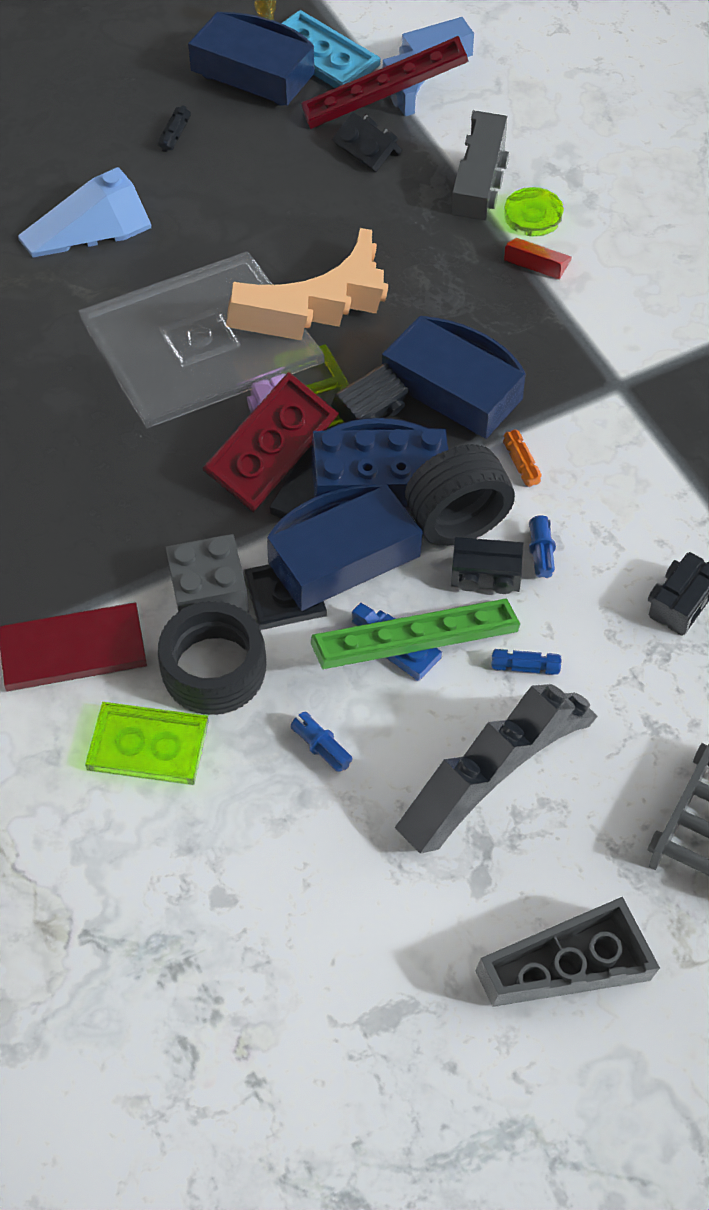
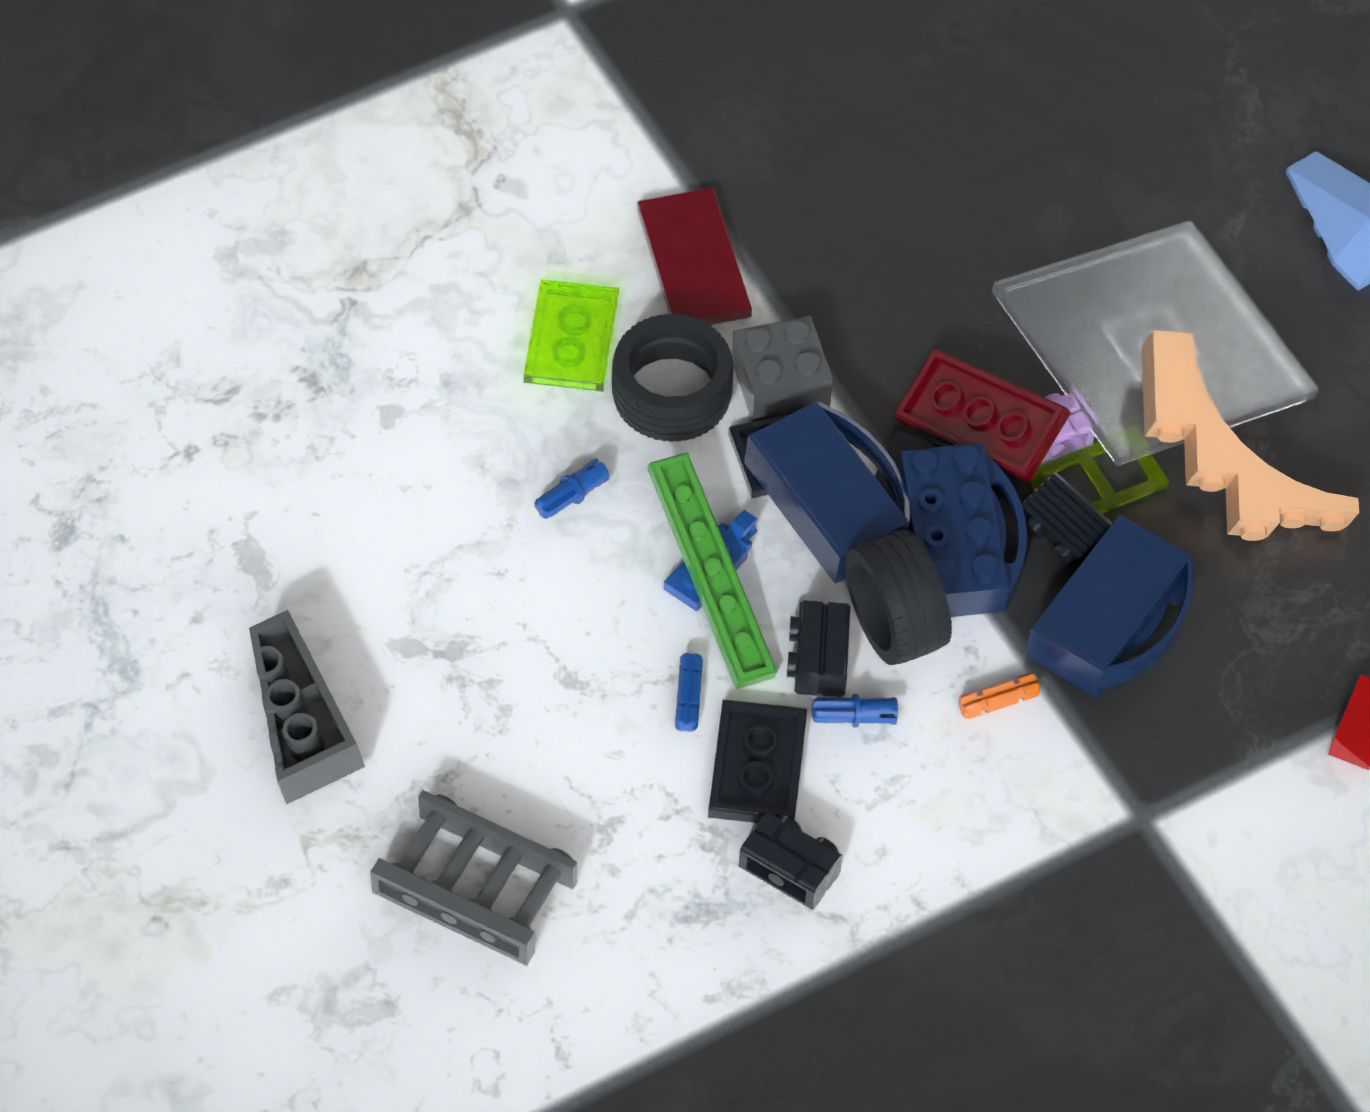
camera: 85 degrees right, 0 degrees up
(499, 749) = (530, 622): black arch -> none
(589, 617) = (757, 761): none -> black tile

